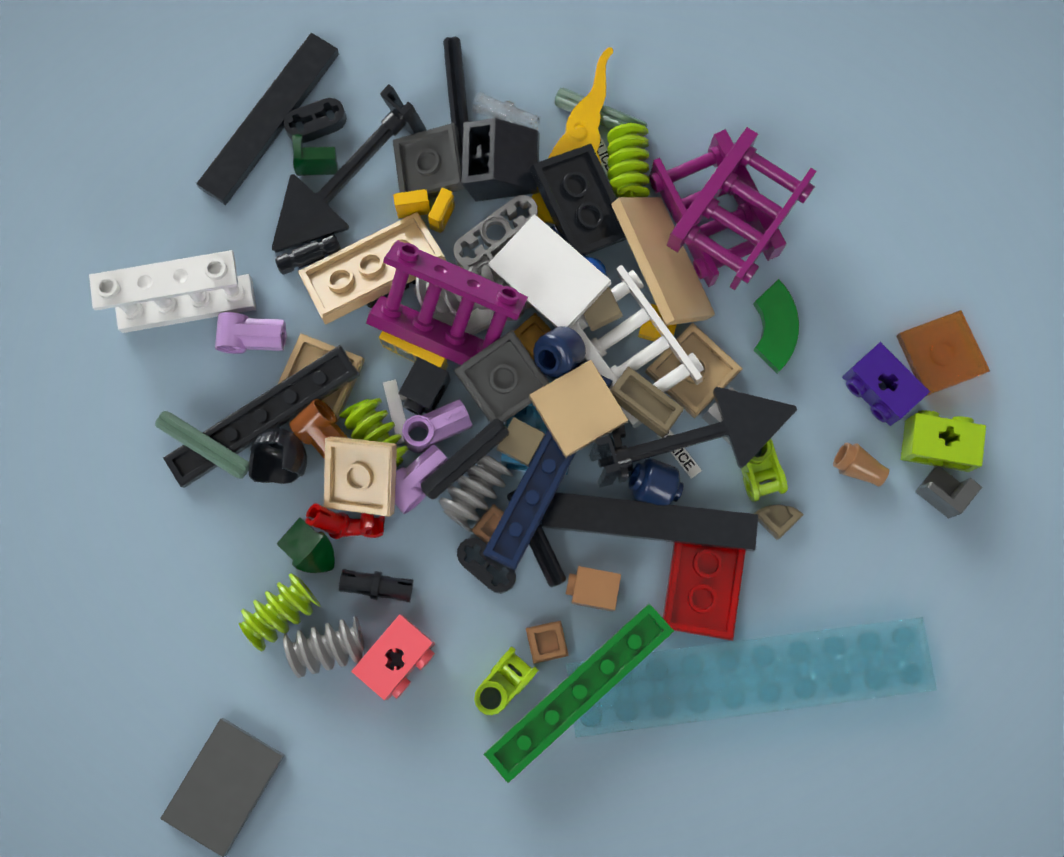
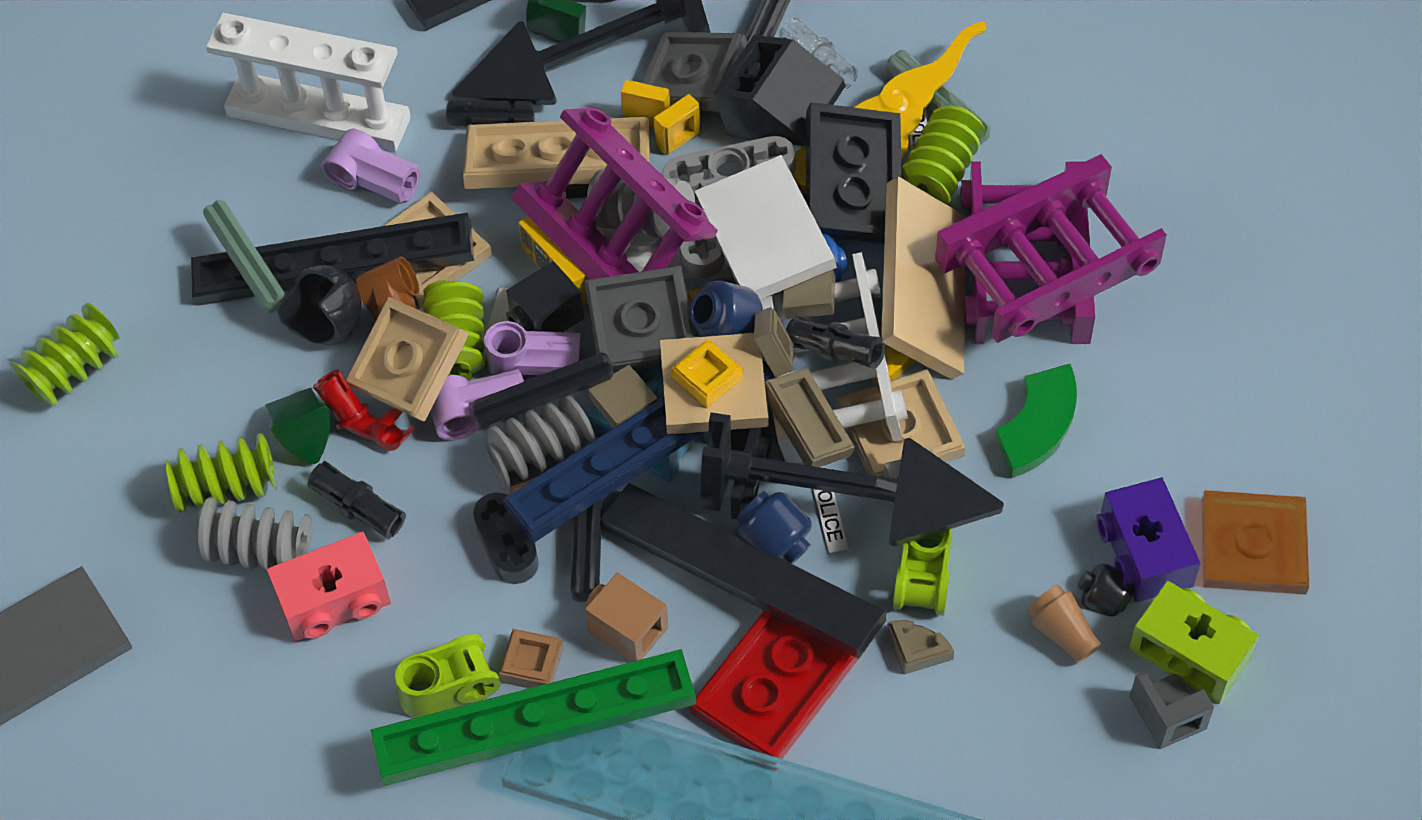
camera: 30 degrees right, 20 degrees down
(121, 574) = (67, 354): none -> lime piece
(575, 407) = (707, 373): none -> yellow tile
(602, 361) = (773, 341): none -> dark tan tile
(638, 340) = (836, 342): none -> black pin
(869, 427) = (1105, 590): none -> black piece

